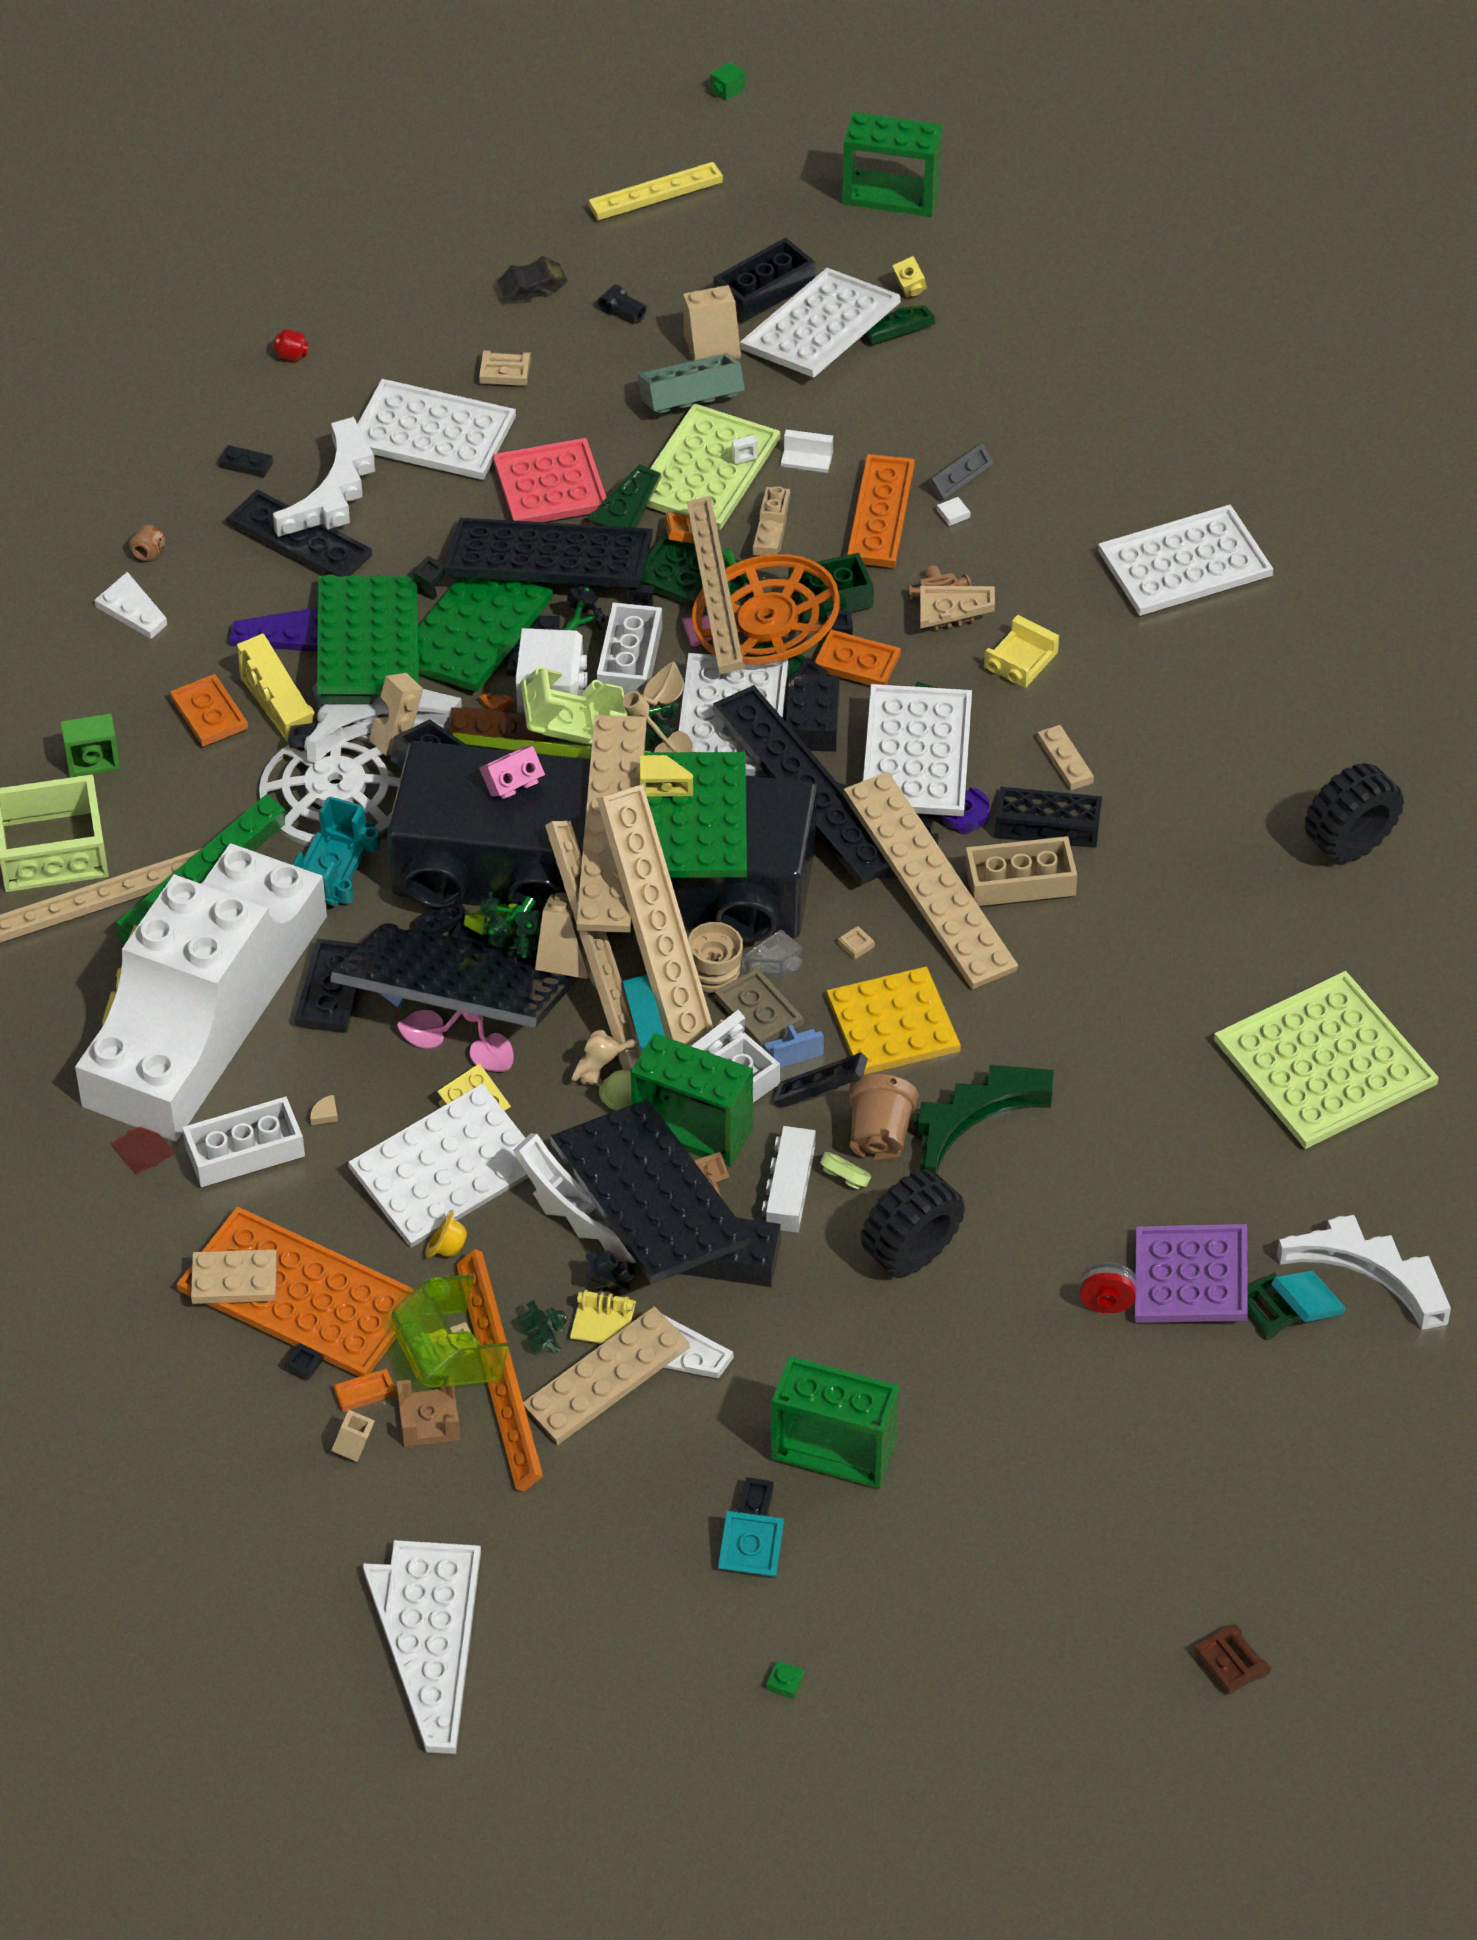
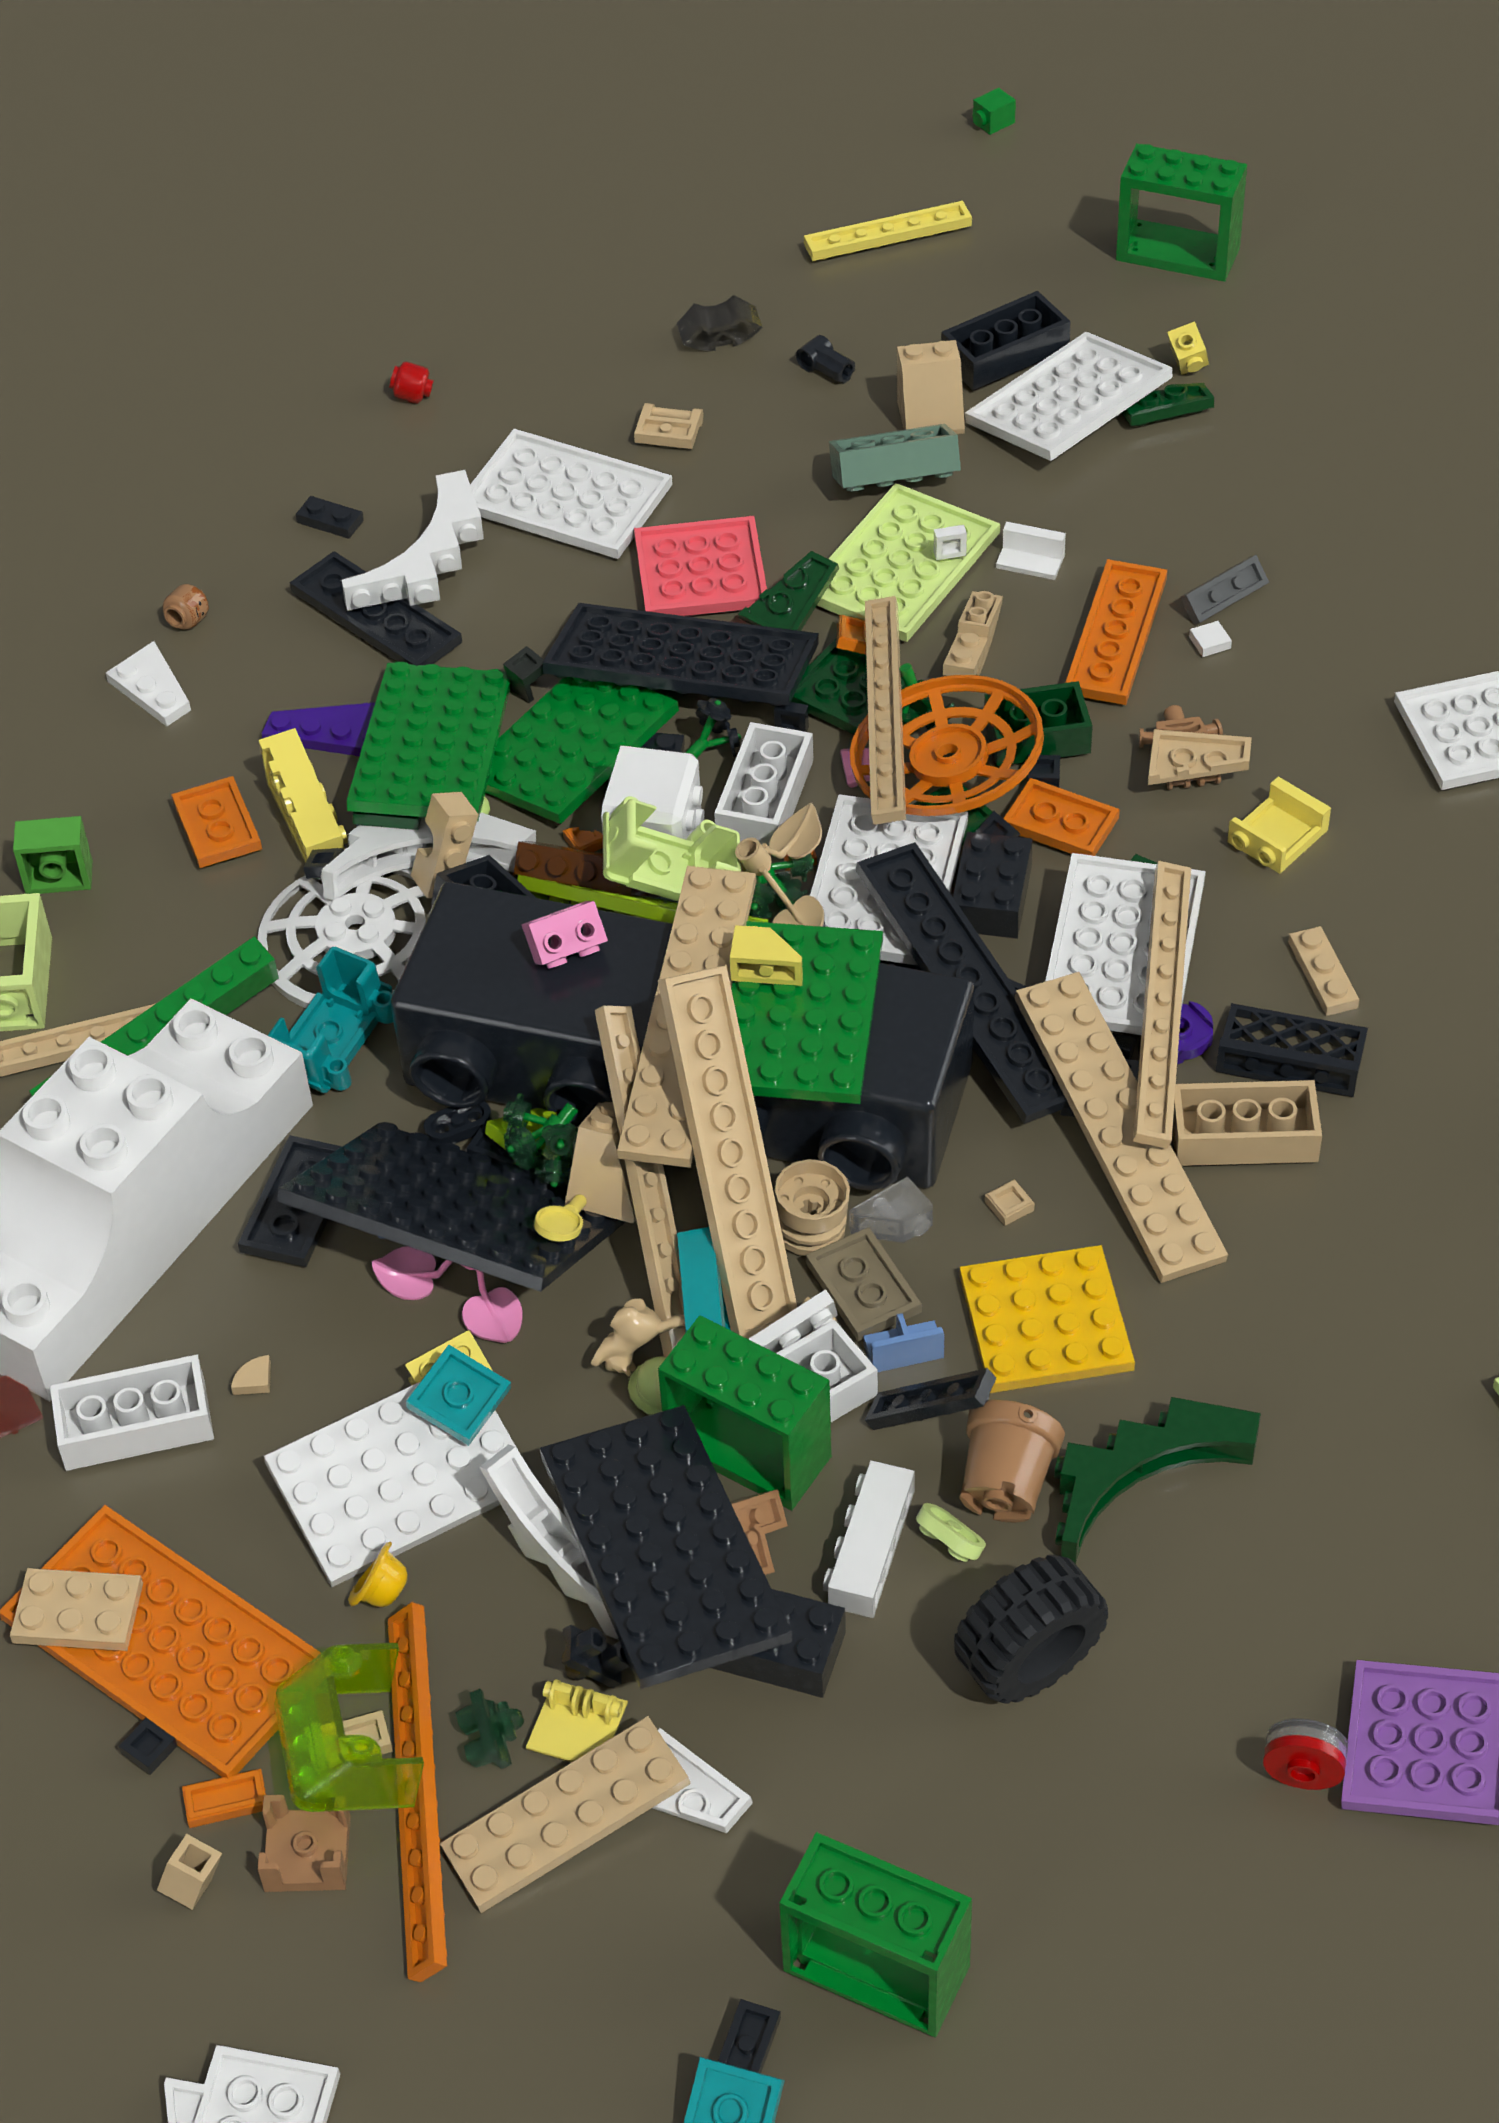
camera: 10 degrees right, 0 degrees up
(483, 1106) = (458, 1395): none -> teal plate
(538, 980) = (561, 1222): none -> light yellow piece
(952, 789) = (1162, 1006): none -> tan plate

